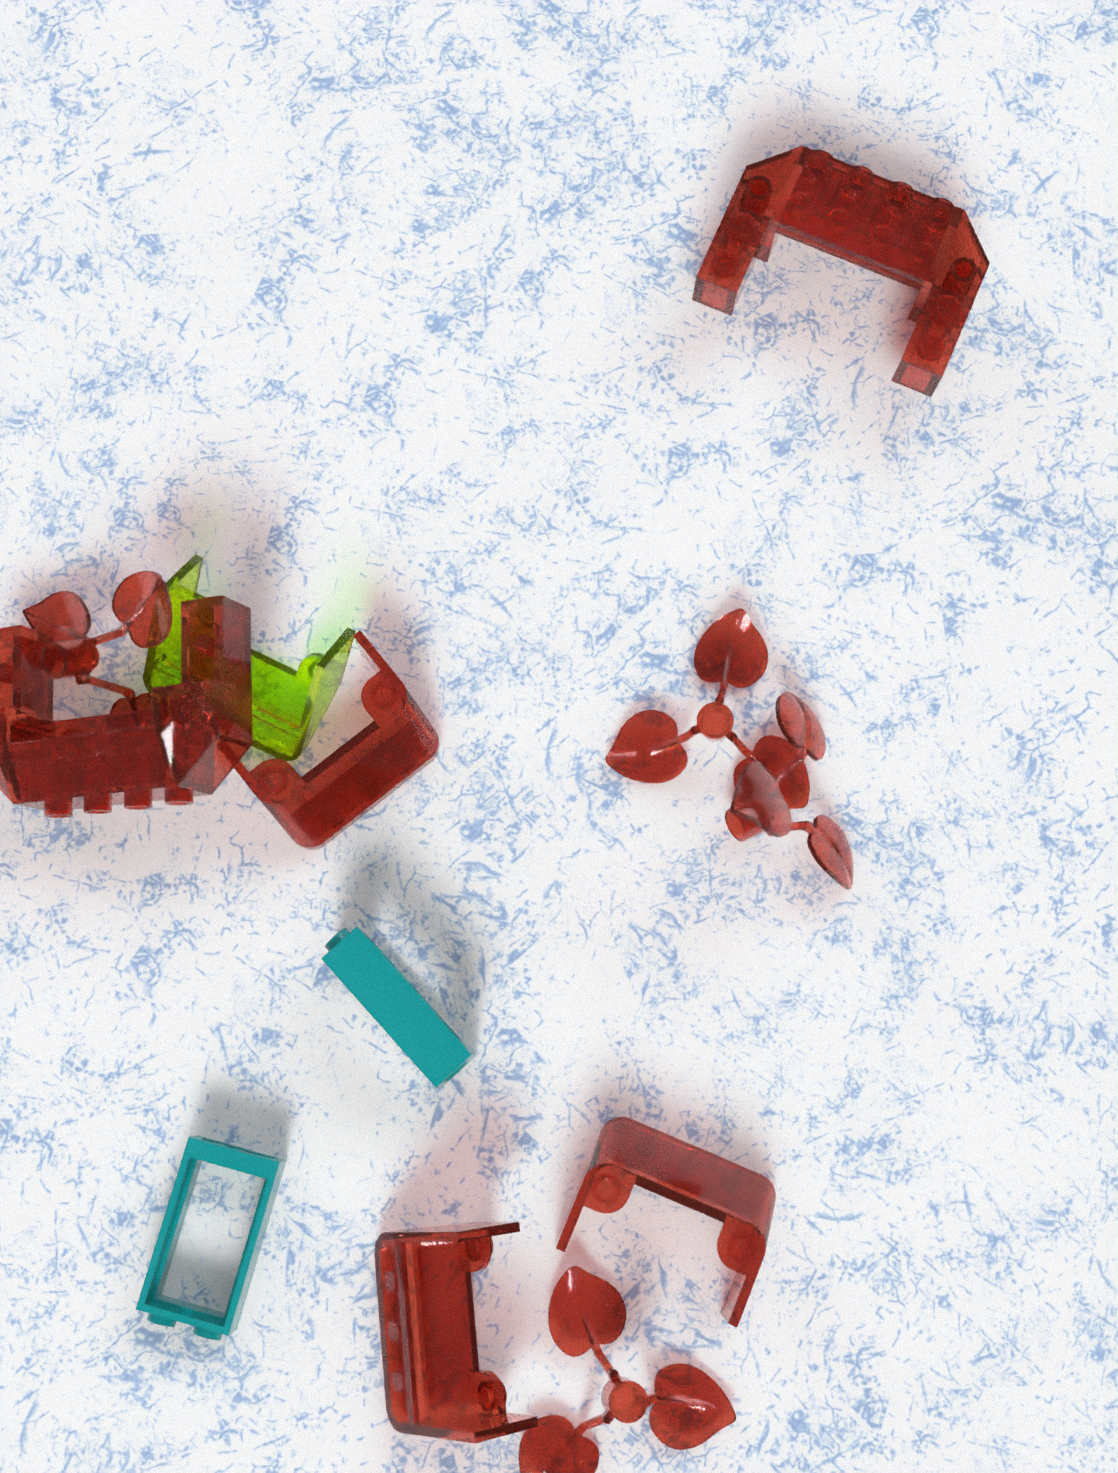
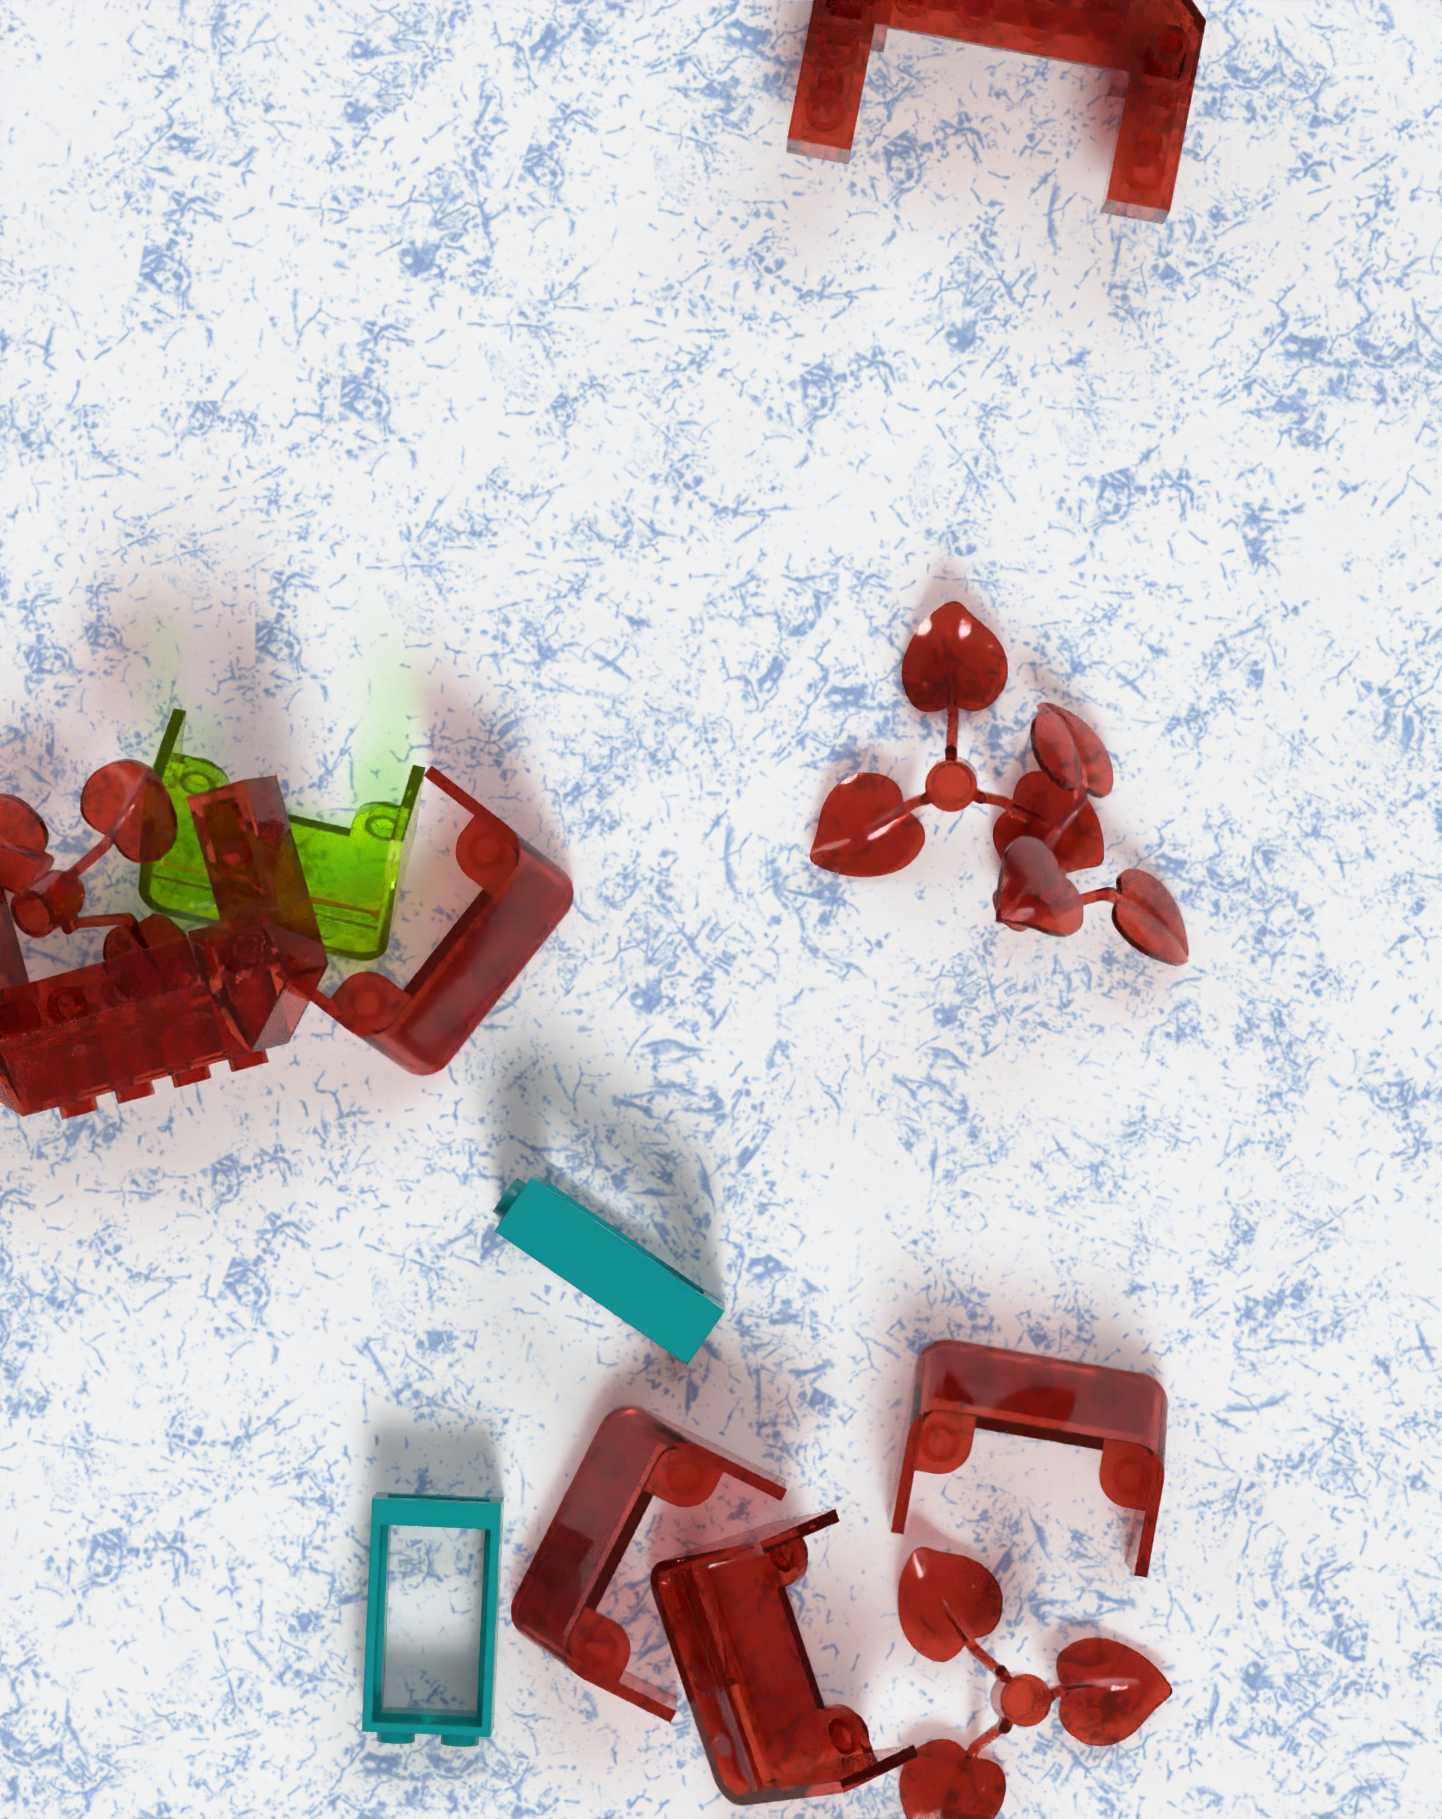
camera: 10 degrees left, 10 degrees up
(378, 1153) = (622, 1469): none -> clear red windscreen

